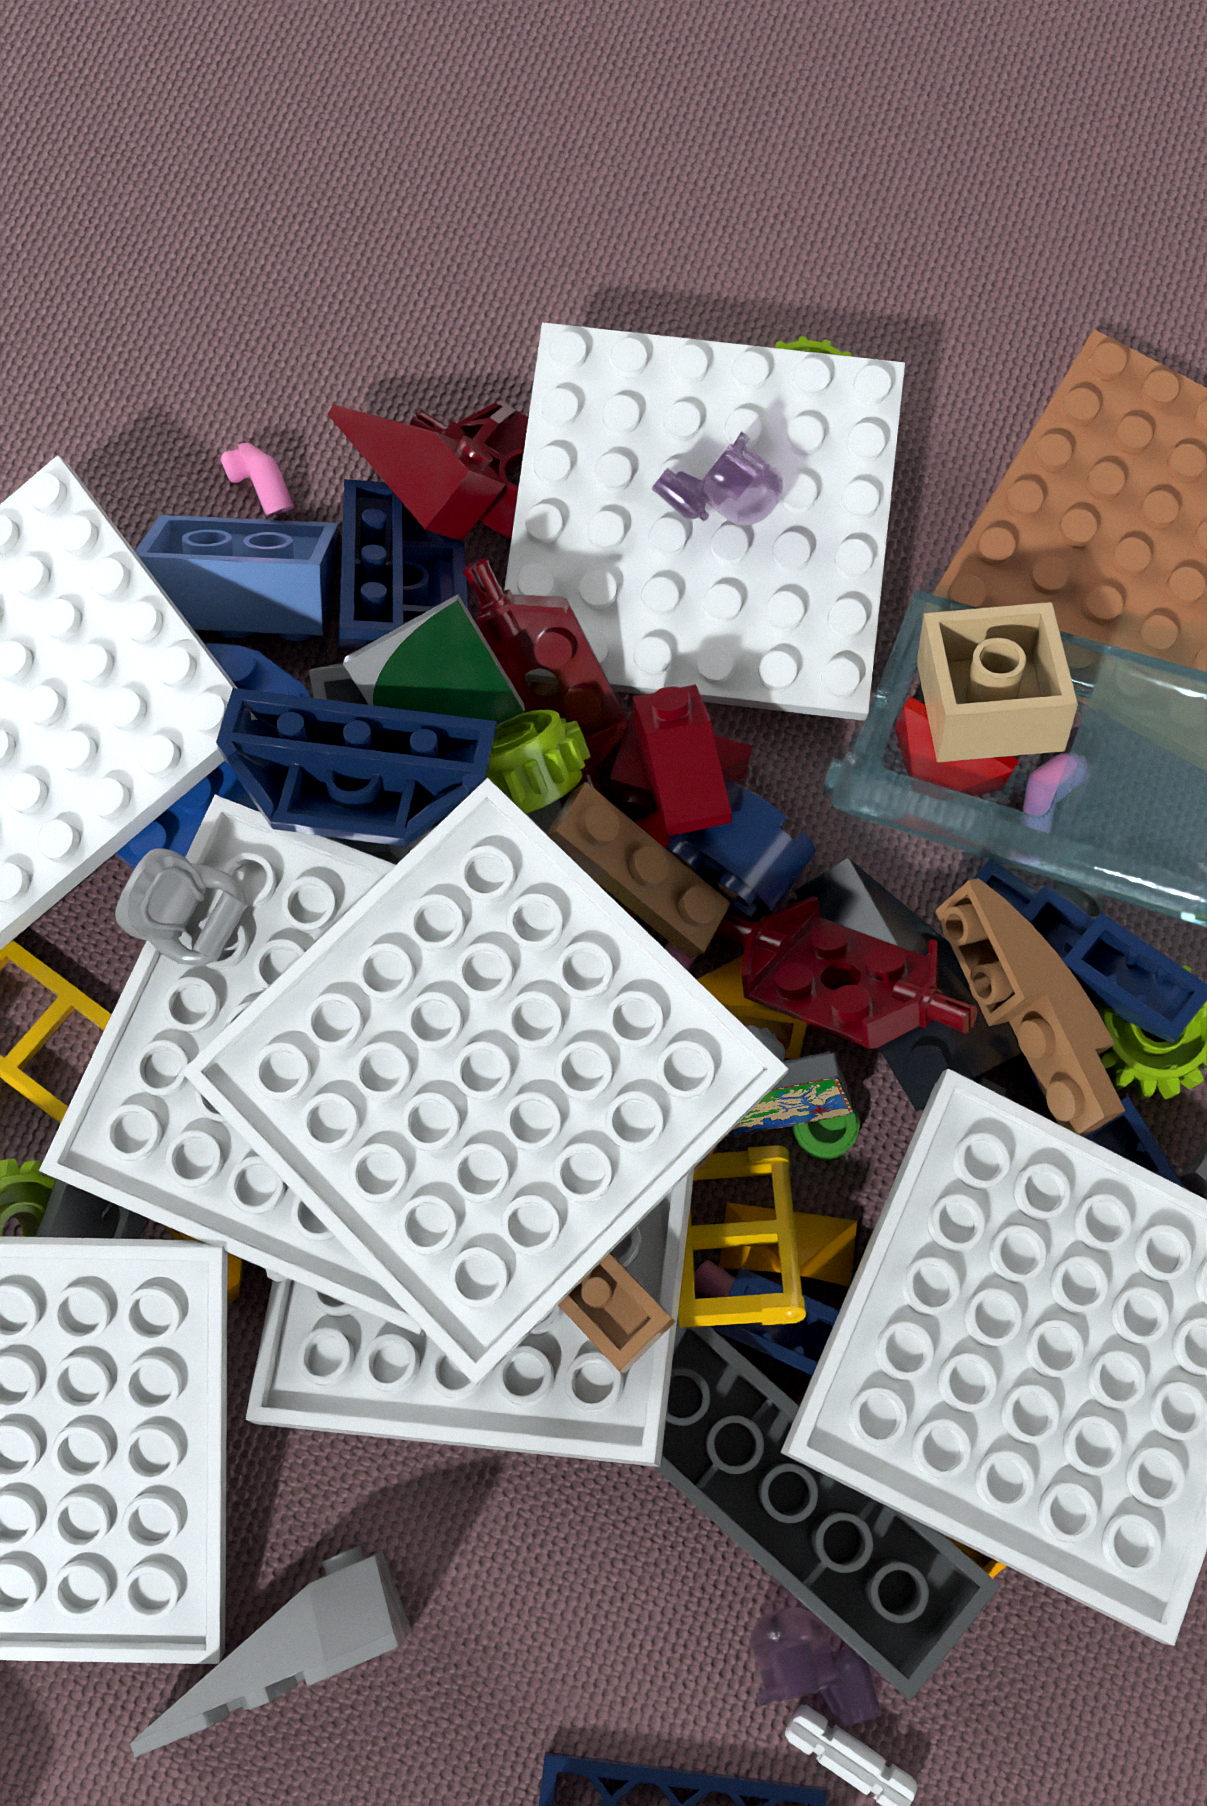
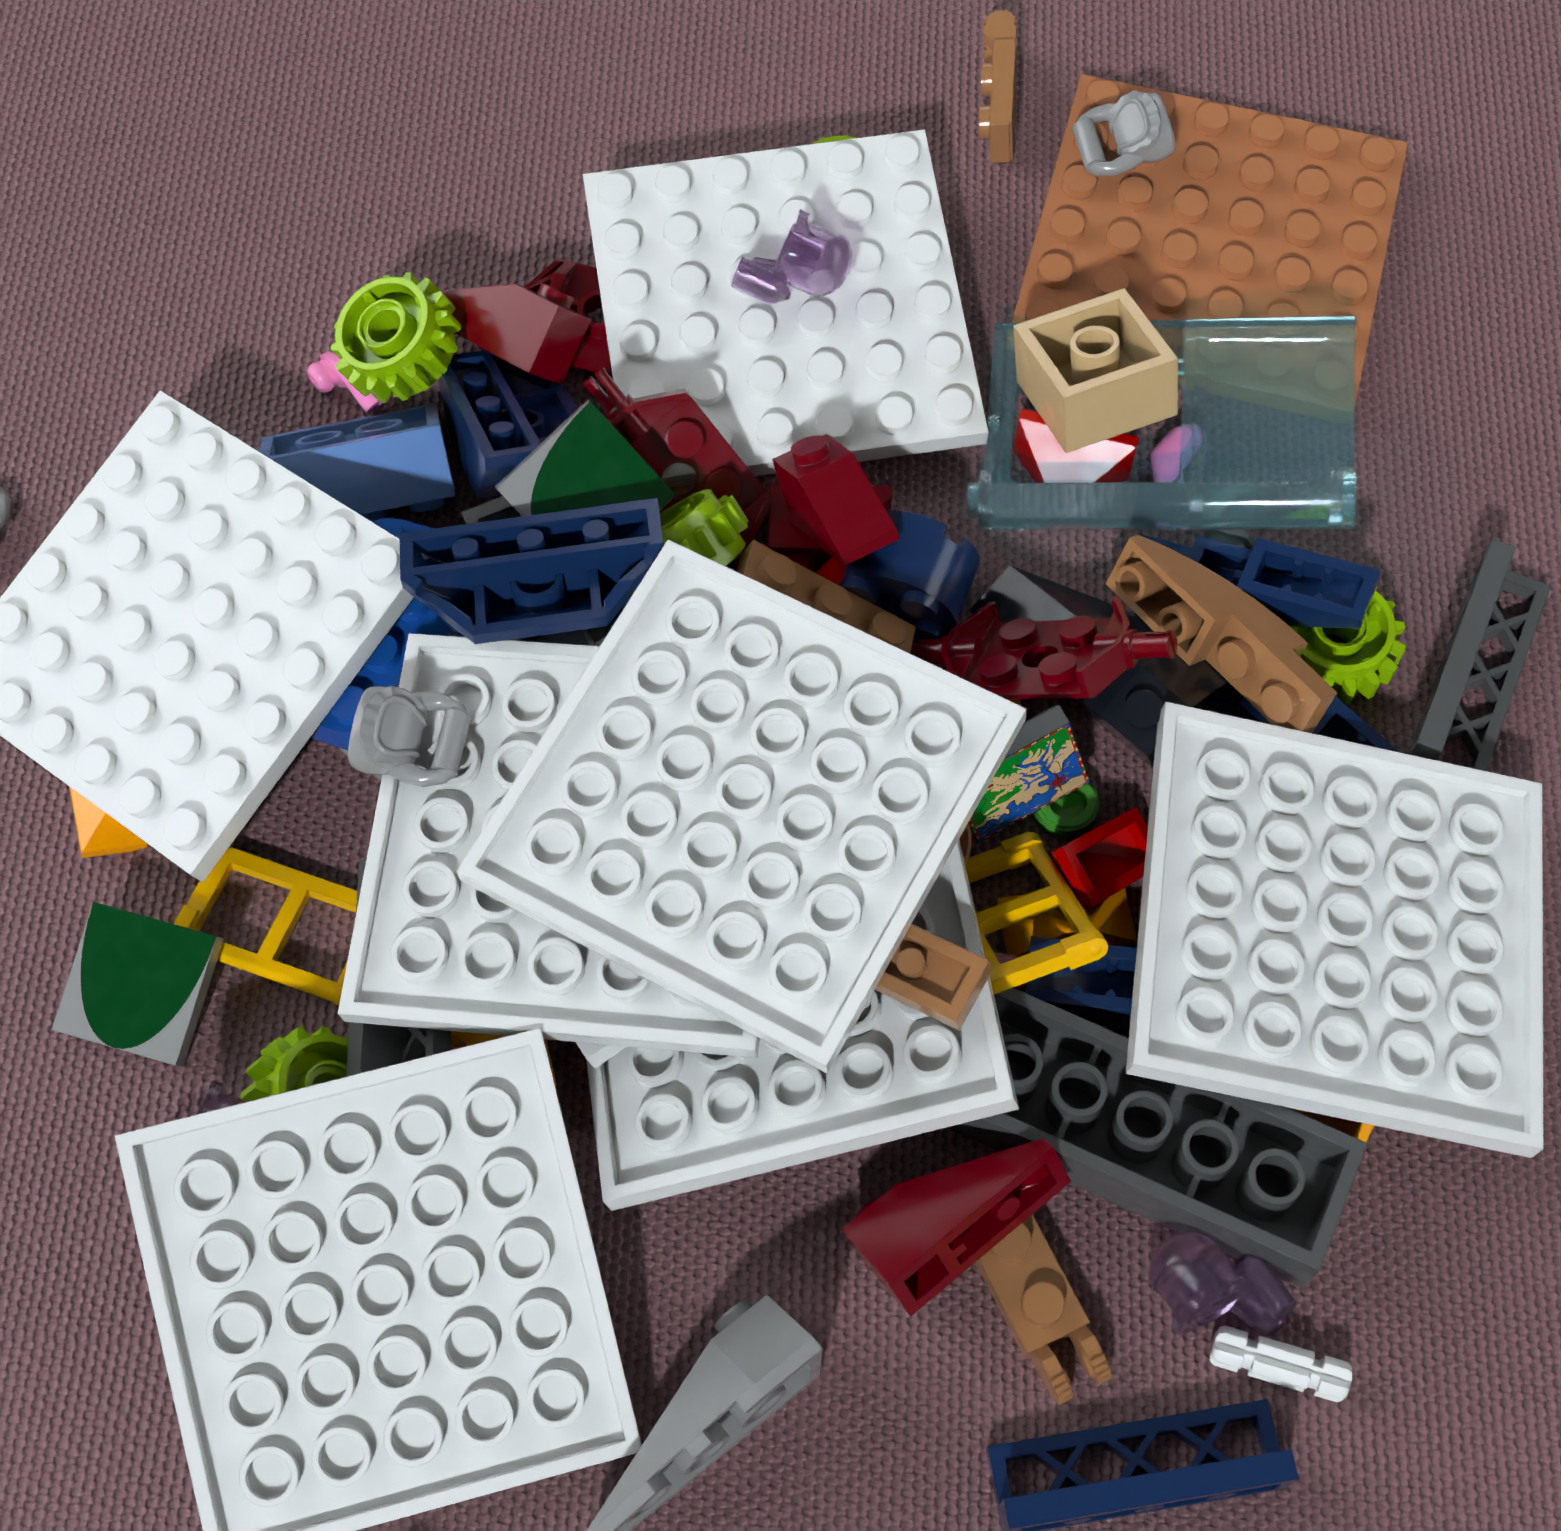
camera: 15 degrees left, 10 degrees down
(306, 453) = (395, 337): none -> lime gear
(557, 1533) = (945, 1221): none -> dark red slope
(635, 1615) = (1041, 1307): none -> medium nougat hinge
(840, 1197) = (1104, 858): none -> red slope
(1005, 320) = (999, 83): none -> medium nougat hinge
(1130, 416) = (1138, 128): none -> light grey piece

